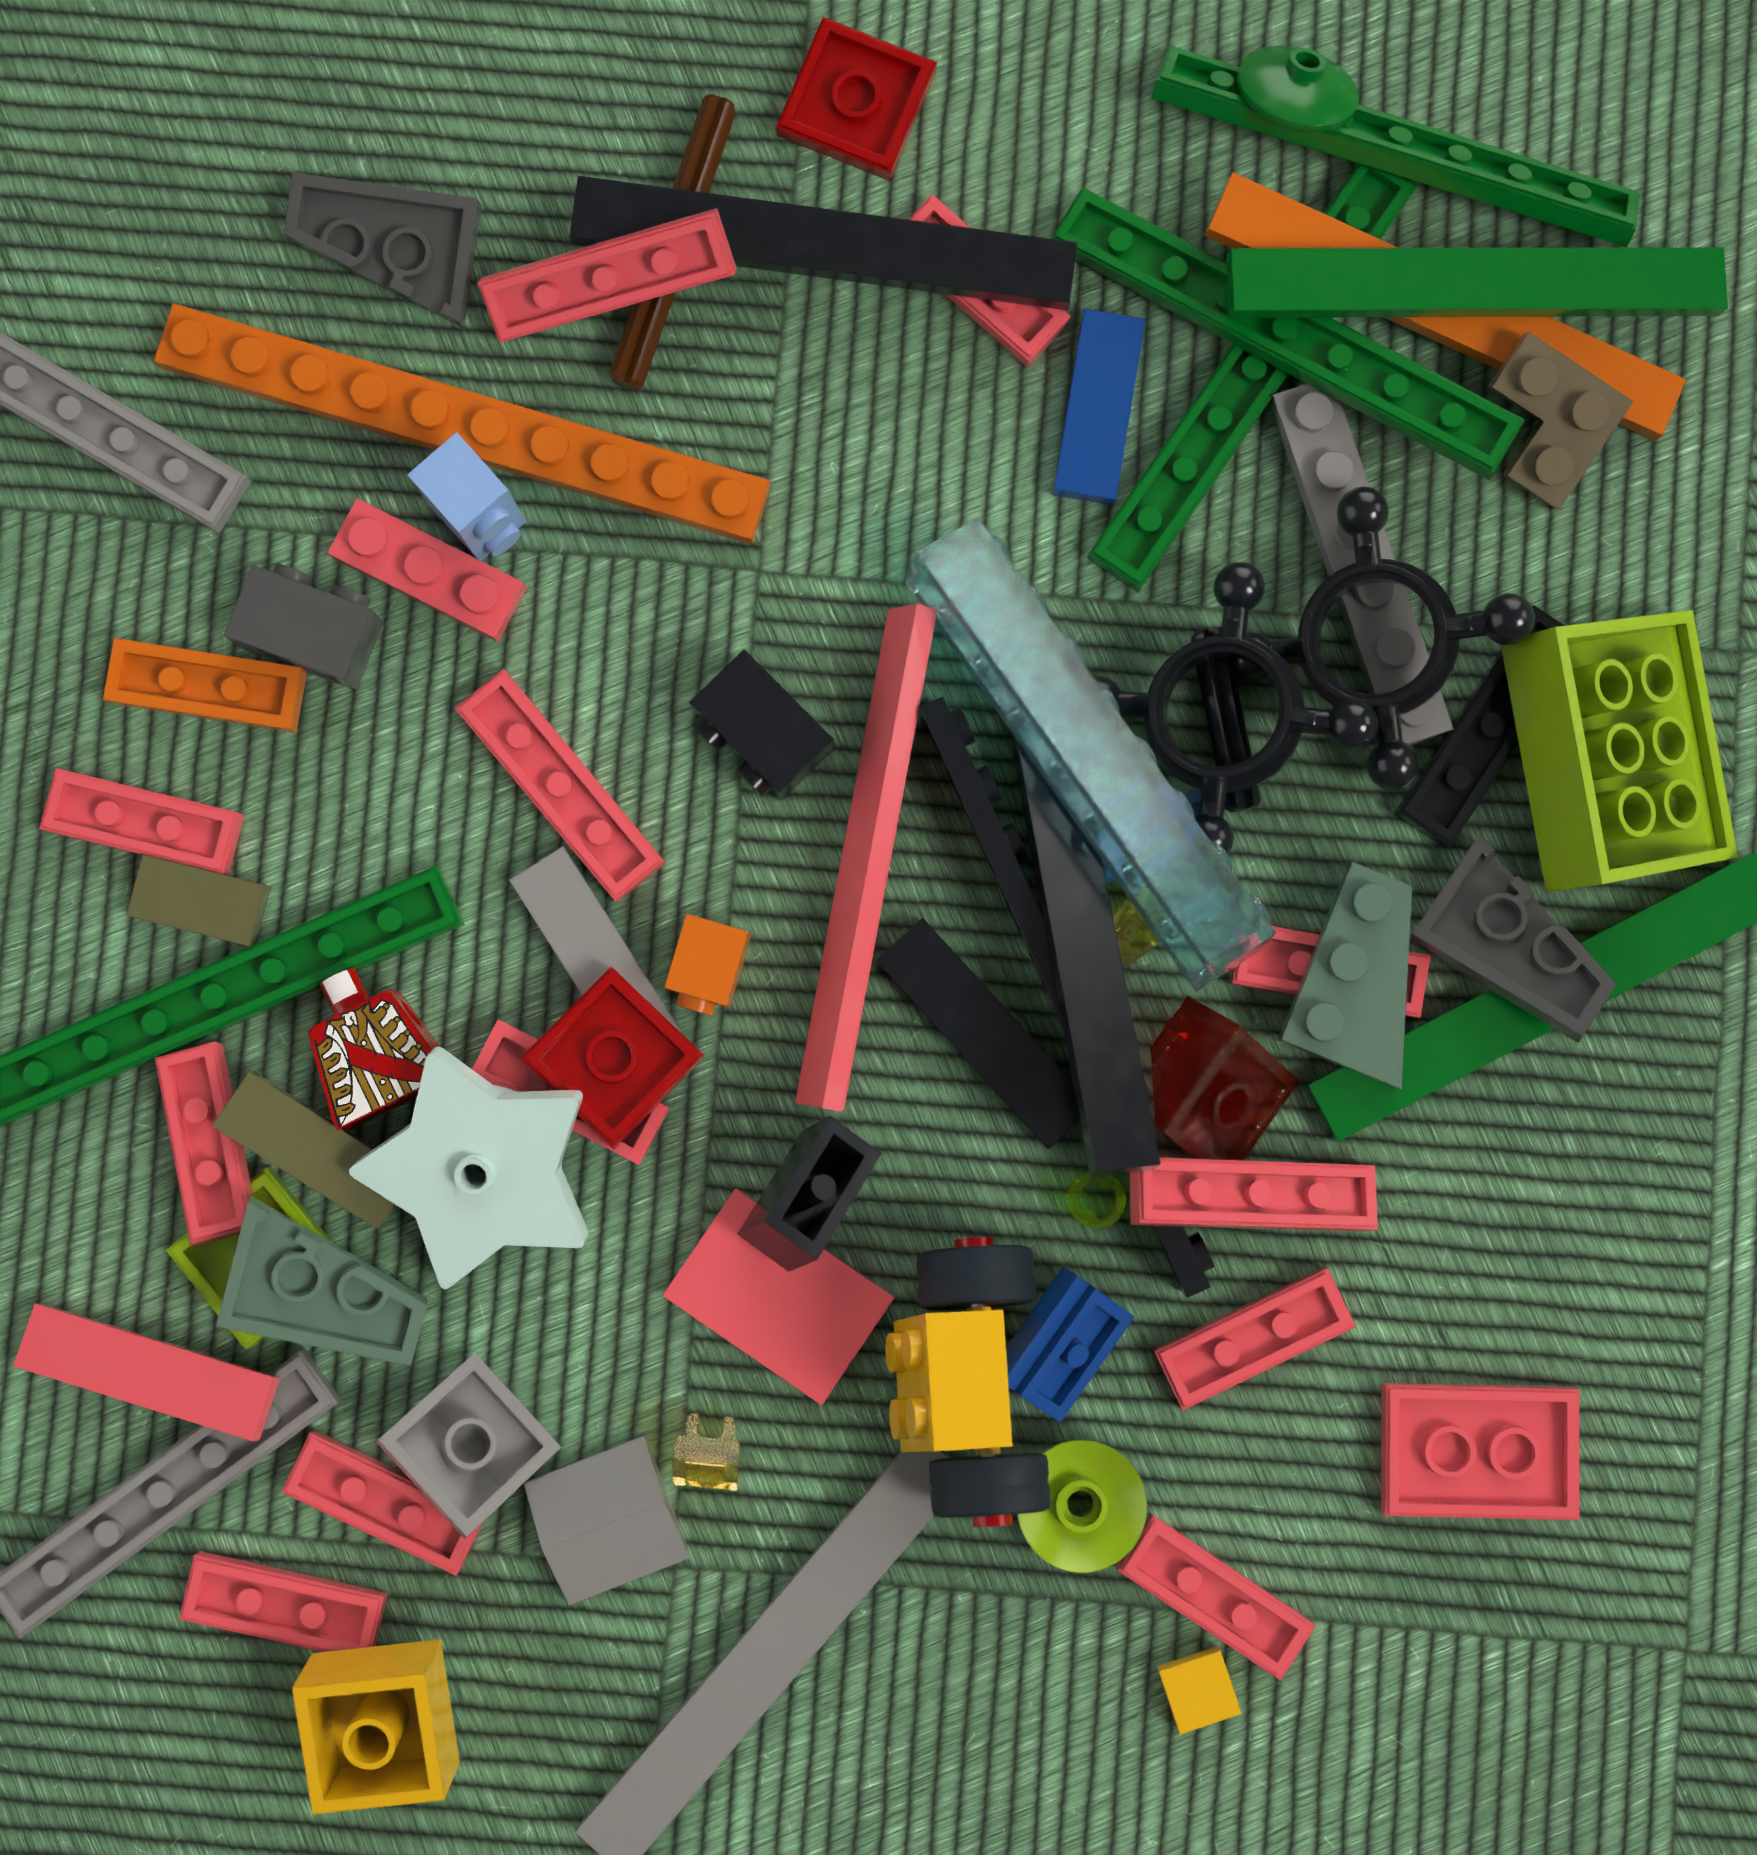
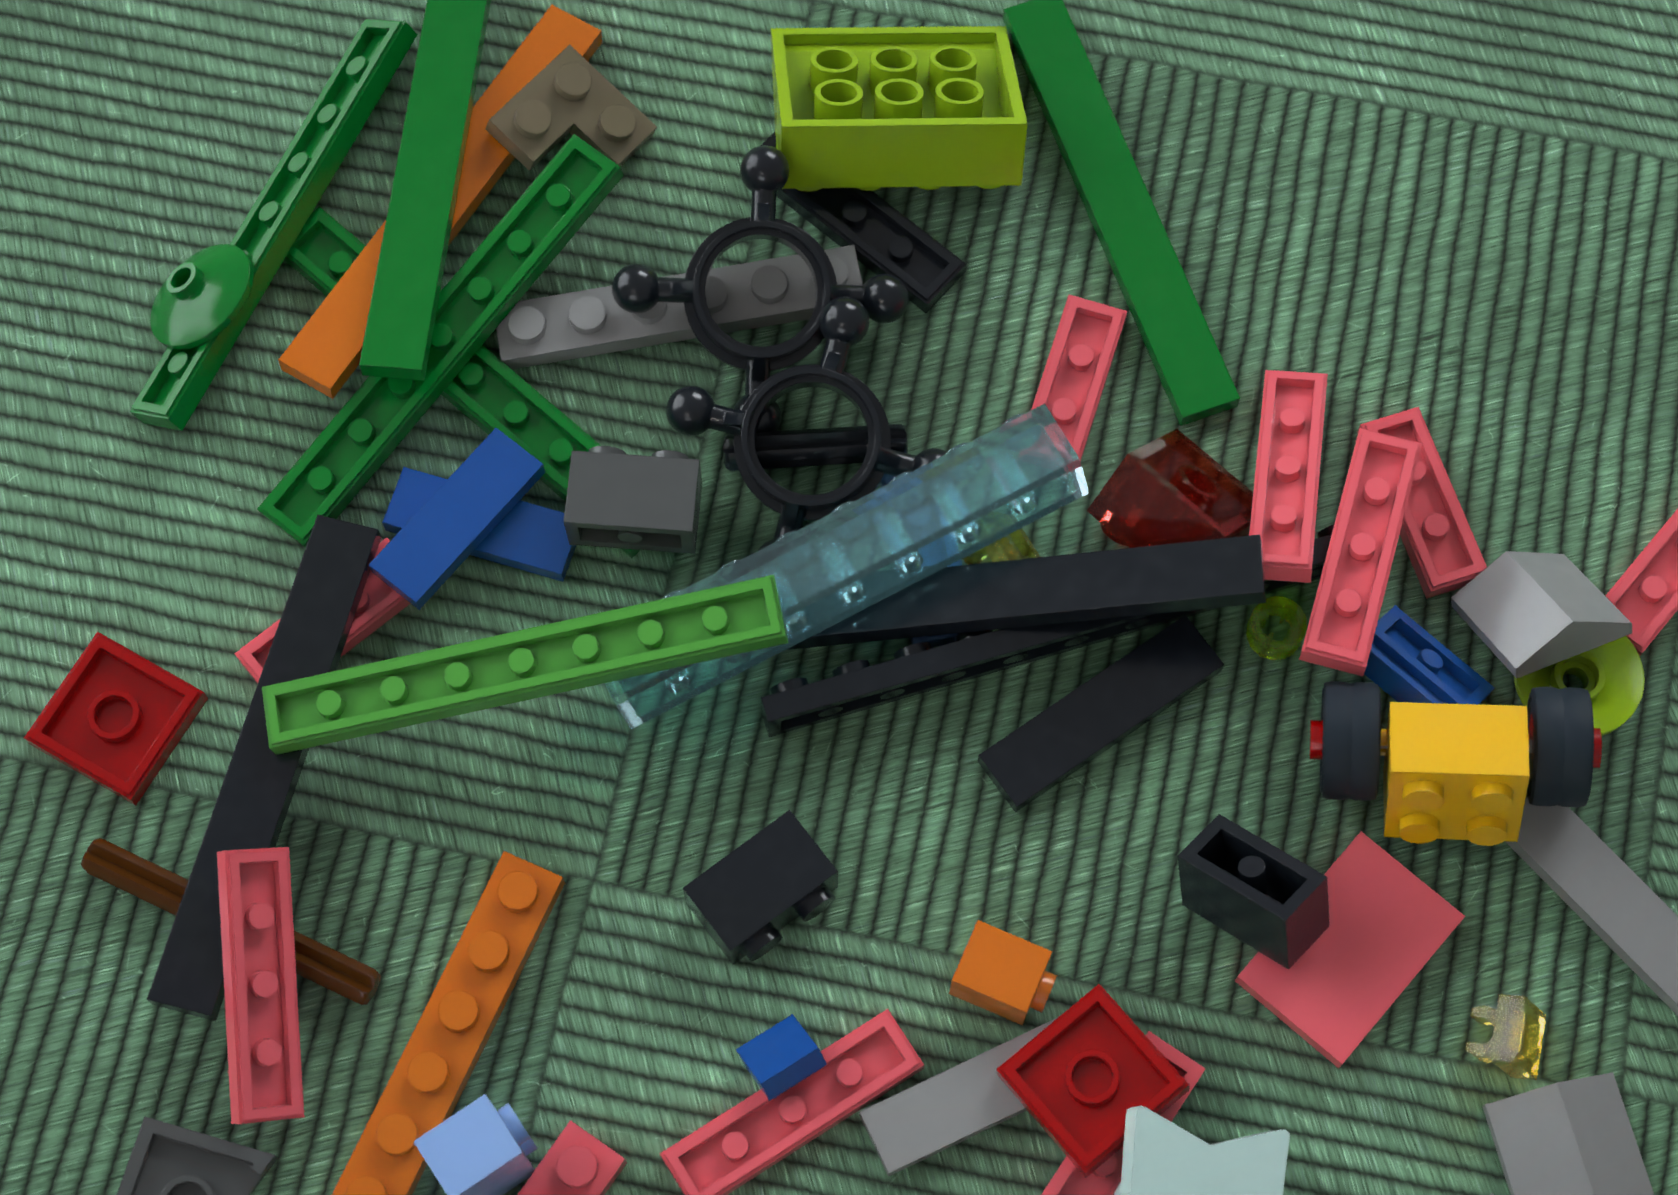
camera: 80 degrees left, 15 degrees down
(603, 766) = (781, 1057): none -> blue tile
(866, 857) = (912, 801): coral tile -> none
(939, 466) = (524, 665): none -> bright green tile
(1095, 378) = (457, 518): none -> blue tile
(1133, 543) = (633, 500): none -> dark grey brick
(1142, 1461) = (1537, 611): none -> light grey slope
(1173, 1273) = (1360, 552): none -> coral tile
(1356, 980) = (1086, 358): sand green wing -> none
(1480, 1451) = (1541, 318): coral tile -> none
(1508, 943) = (1065, 225): dark grey wing -> none

